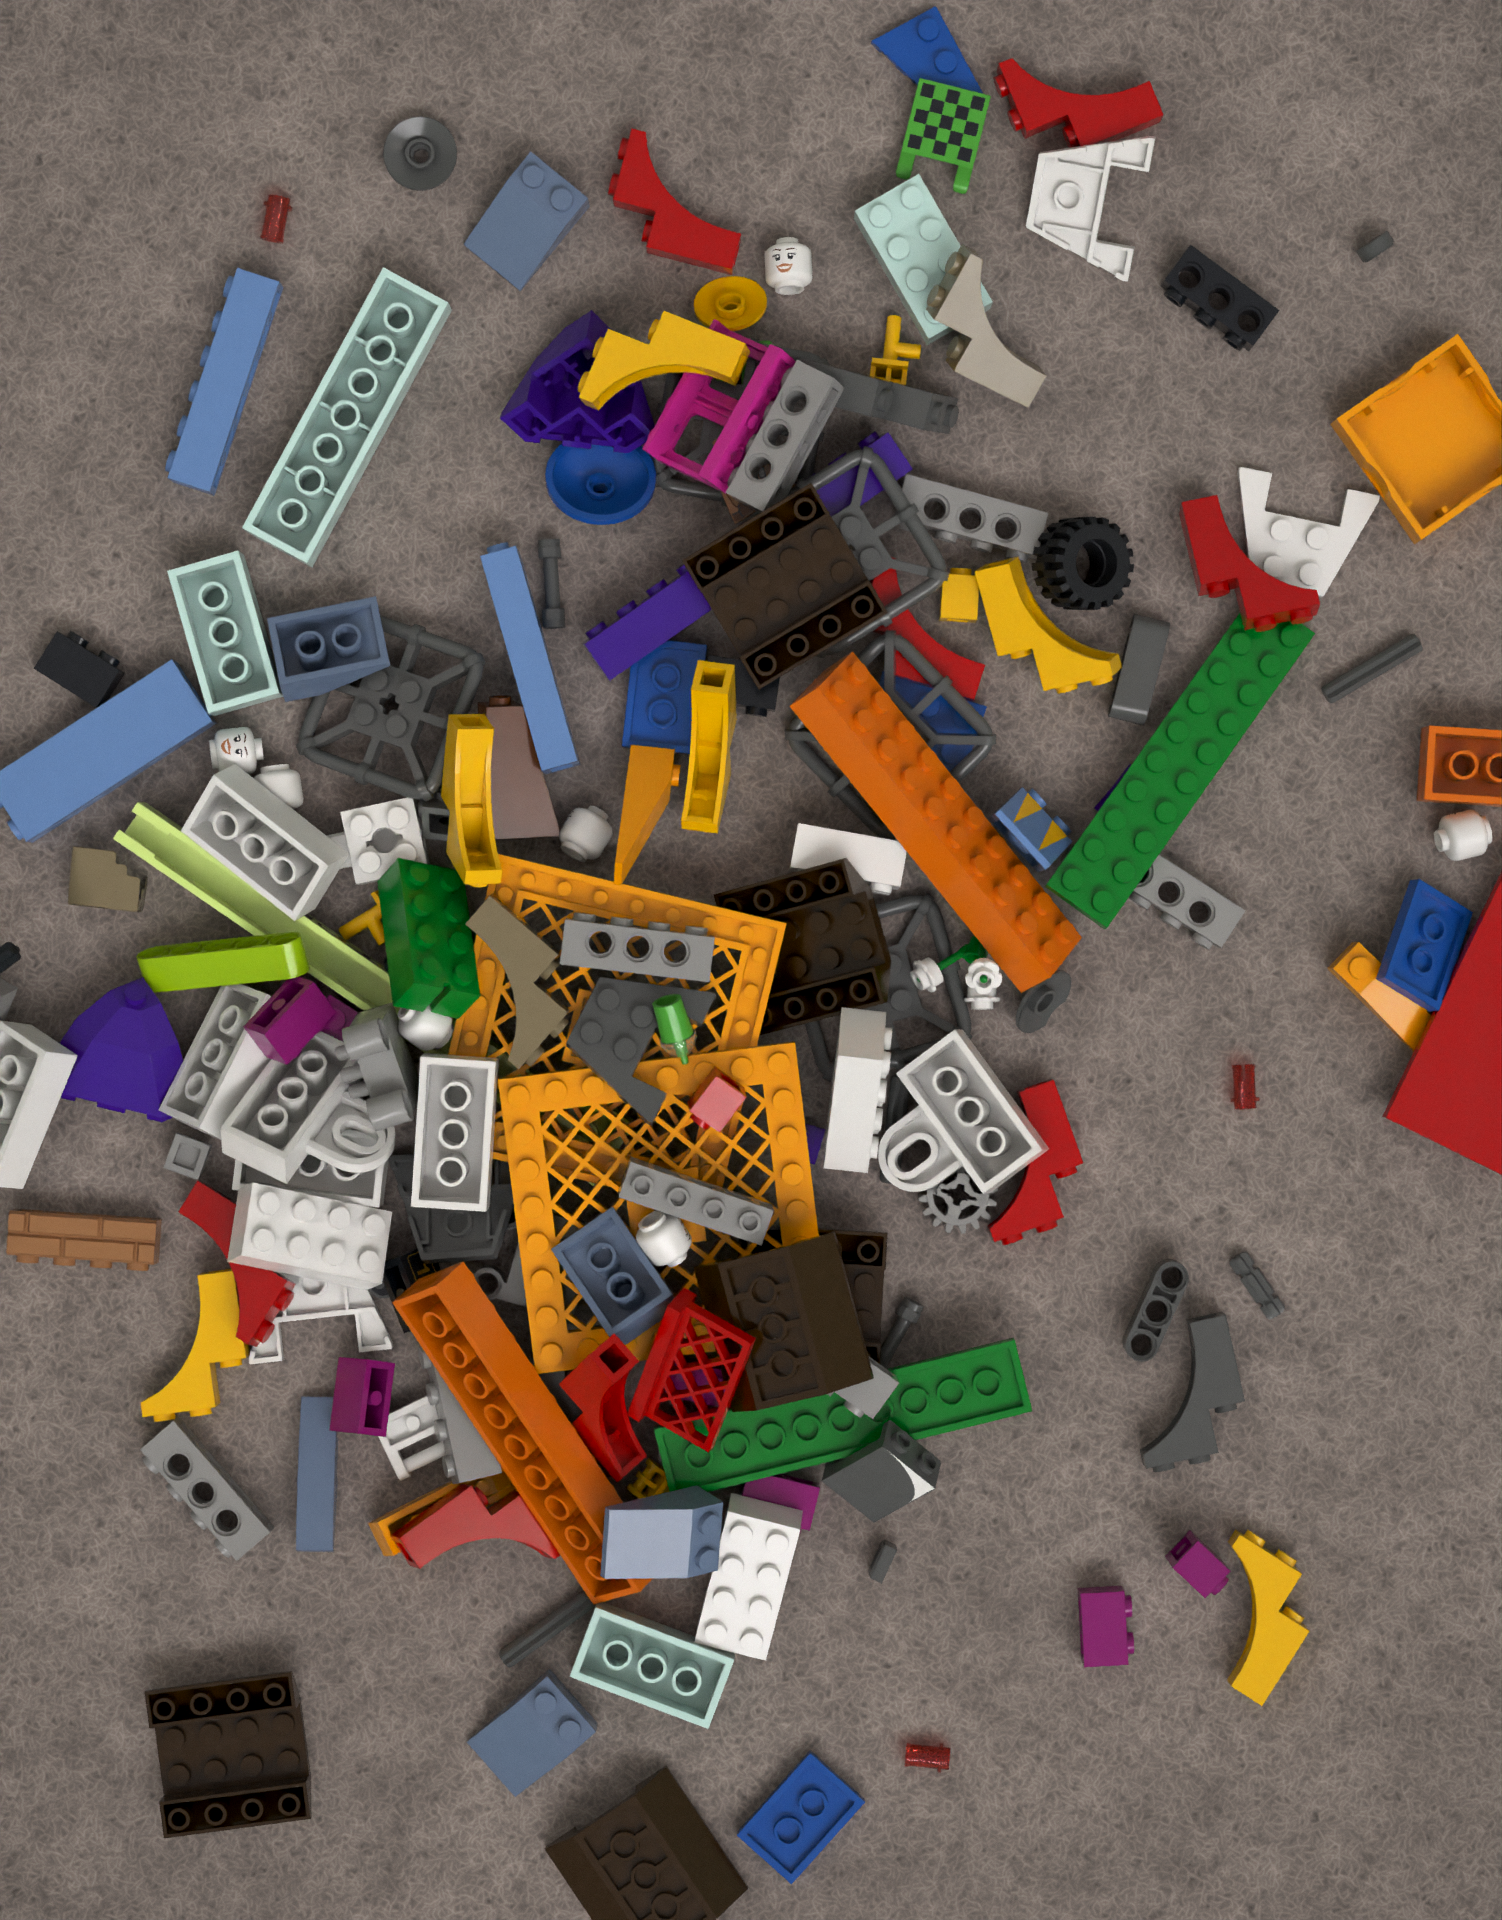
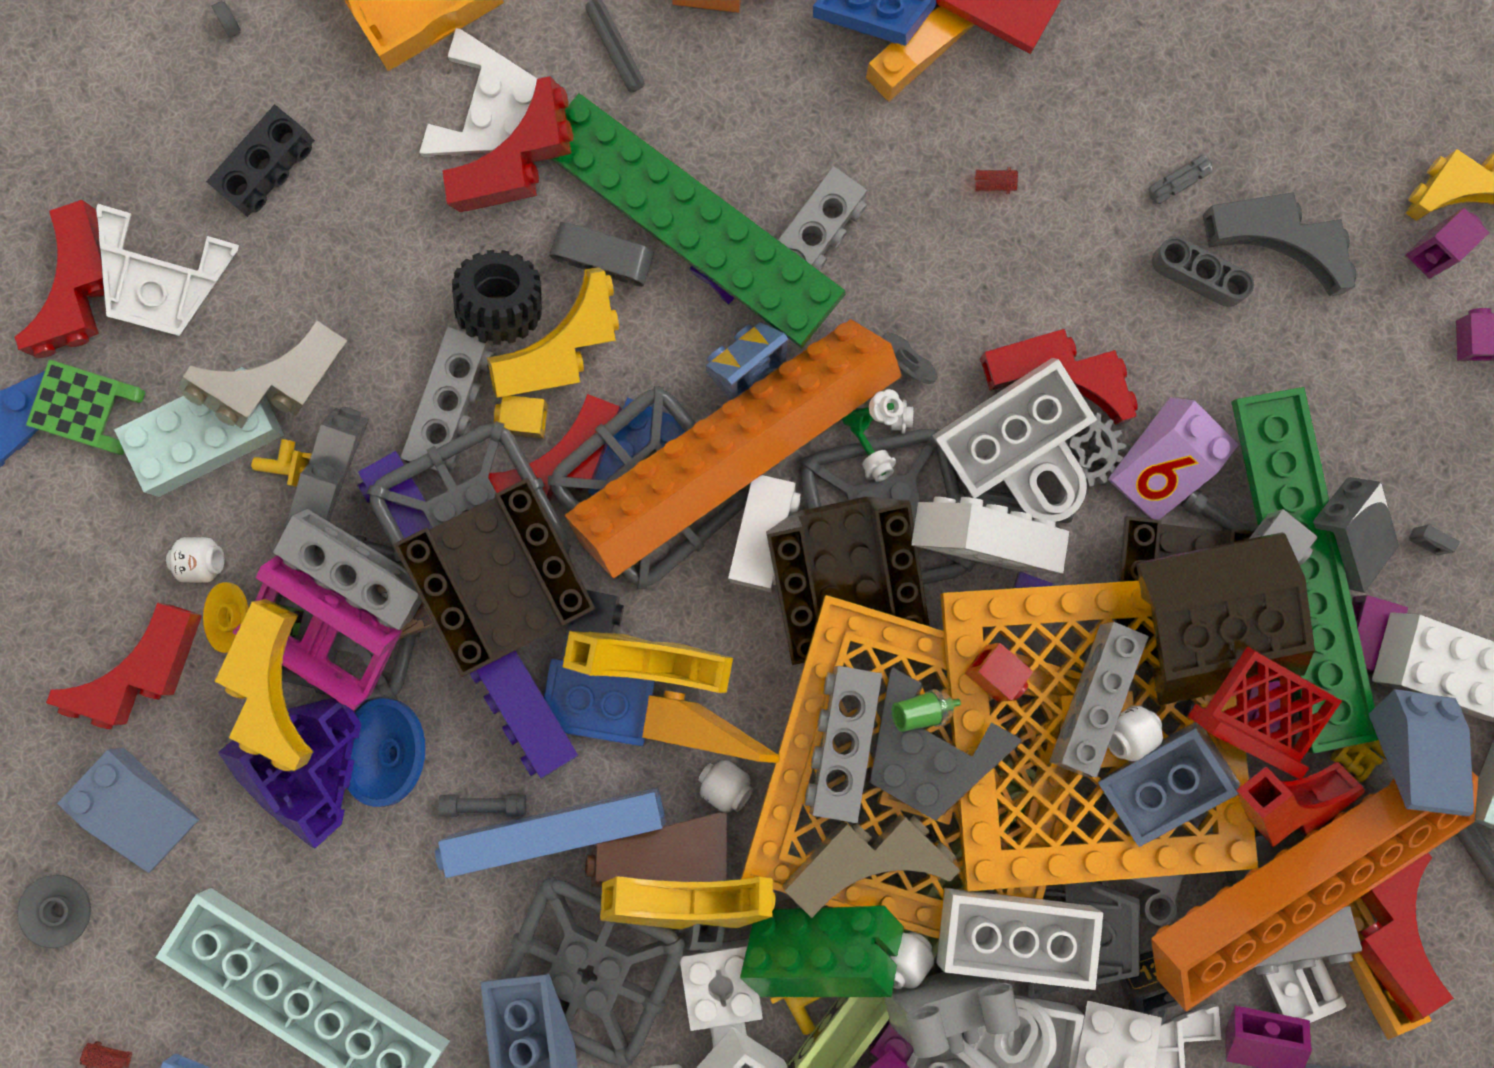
camera: 90 degrees left, 5 degrees down
(951, 1281) = (1172, 458): none -> lavender slope

